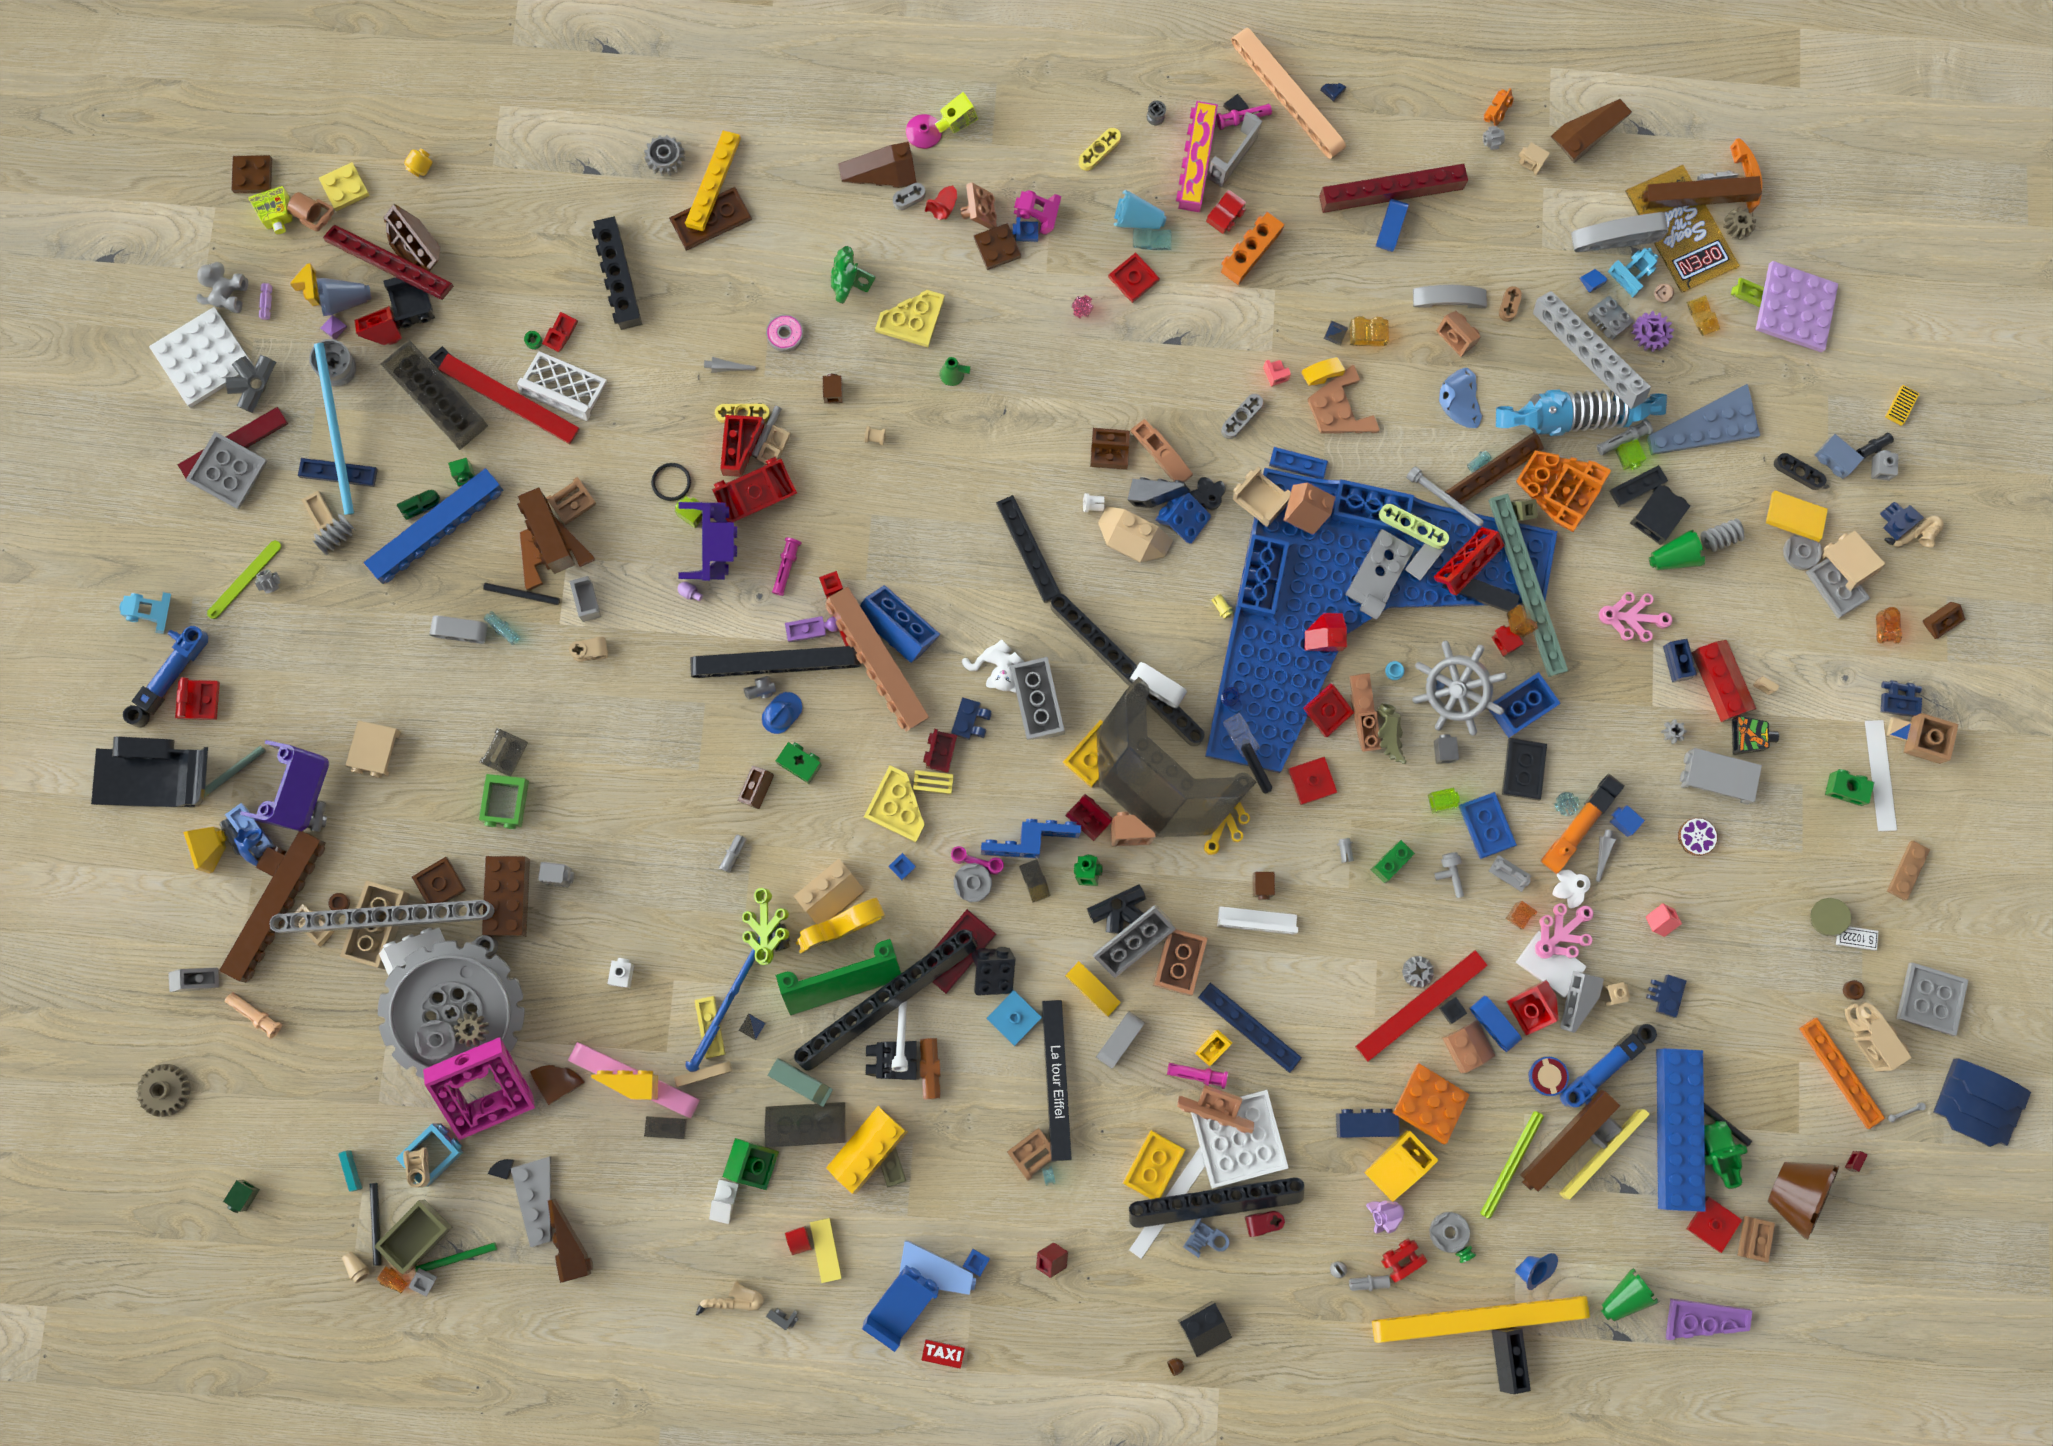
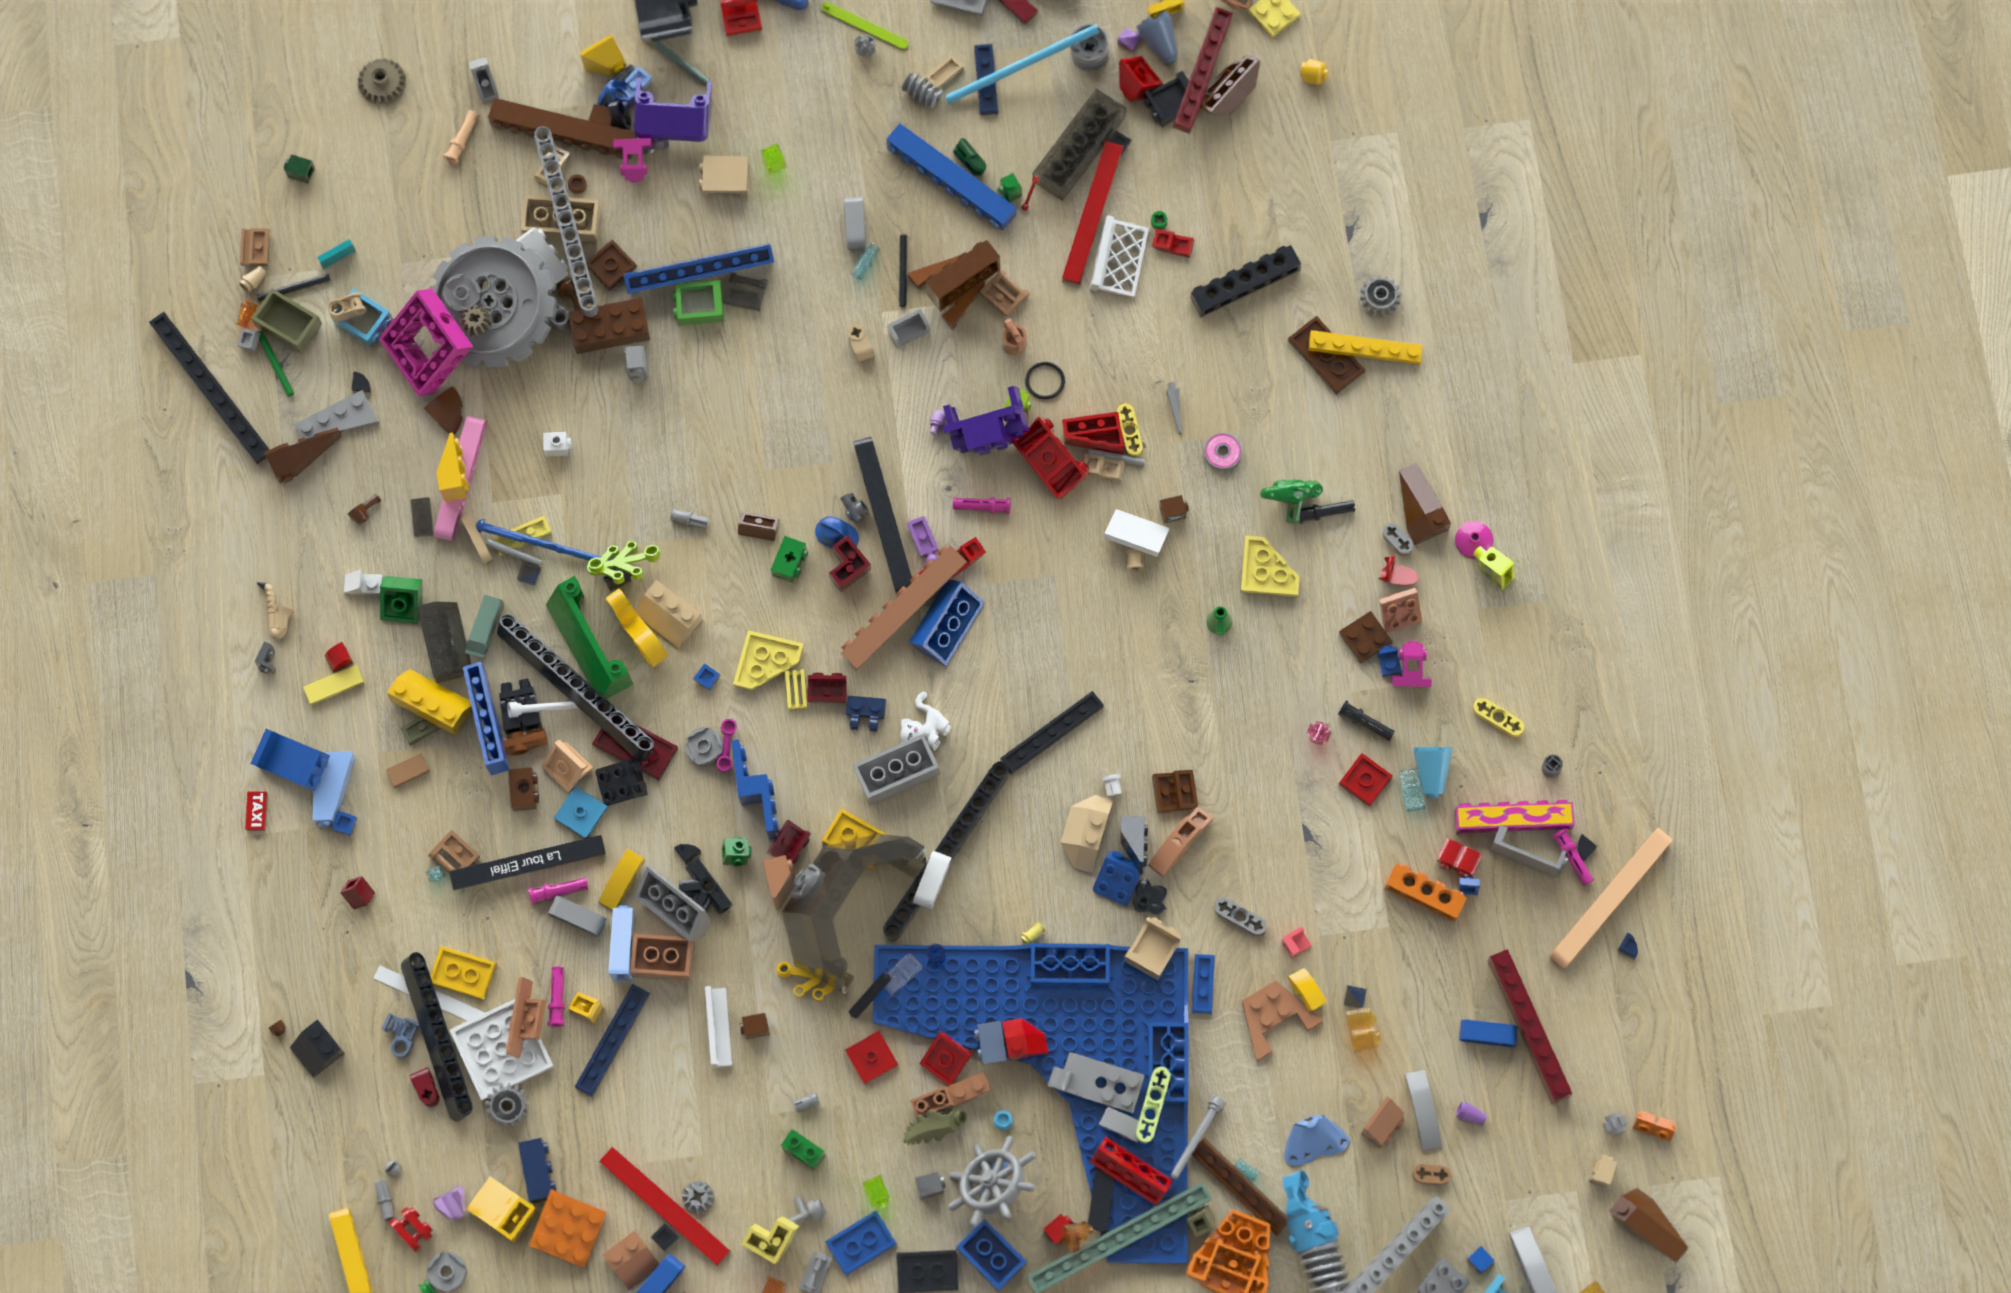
camera: 90 degrees right, 5 degrees down
(275, 842) = (620, 114): none -> black beam
(318, 1259) = (255, 247): none -> medium nougat plate
(345, 840) = (633, 173): none -> dark pink tile
(366, 696) = (773, 158): none -> clear neon green brick
(455, 931) = (567, 289): none -> reddish brown bar
(462, 442) = (1035, 179): none -> red hinge
(465, 1333) = (210, 387): none -> black plate
(467, 793) = (699, 268): none -> blue brick
(623, 499) = (1014, 338): none -> nougat piece
(646, 1192) = (359, 513): none -> reddish brown bar
(727, 1038) = (513, 552): none -> light grey bar
(818, 699) = (852, 566): none -> dark red brick
(849, 427) = (1136, 533): none -> white tile
(866, 260) = (1316, 512): none -> black pin
(901, 1094) = (486, 718): none -> blue brick
(933, 1187) = (407, 770): none -> medium nougat tile
(964, 1023) = (566, 765): none -> light nougat bracket
(967, 1074) = (517, 779): none -> reddish brown brick
(1035, 881) = (717, 805): clear smoke slope -> none
(1073, 269) = (1356, 714): none -> black pin
(1075, 919) = (687, 851): none -> black tile
(1090, 1064) = (548, 892): none -> dark pink pin
(1137, 804) = (804, 882): none -> light grey tile
(1159, 999) = (621, 943): none -> light blue slope
(1253, 209) = (1469, 885): none -> blue plate
(1288, 1143) = (511, 1114): none -> light grey gear
(1308, 507) = (1147, 993): nougat slope -> none
(1325, 662) = (991, 1042): none -> sand blue brick
(1461, 258) = (1469, 1113): none -> medium lavender cone
(1479, 907) = (771, 1243): none -> light yellow brick

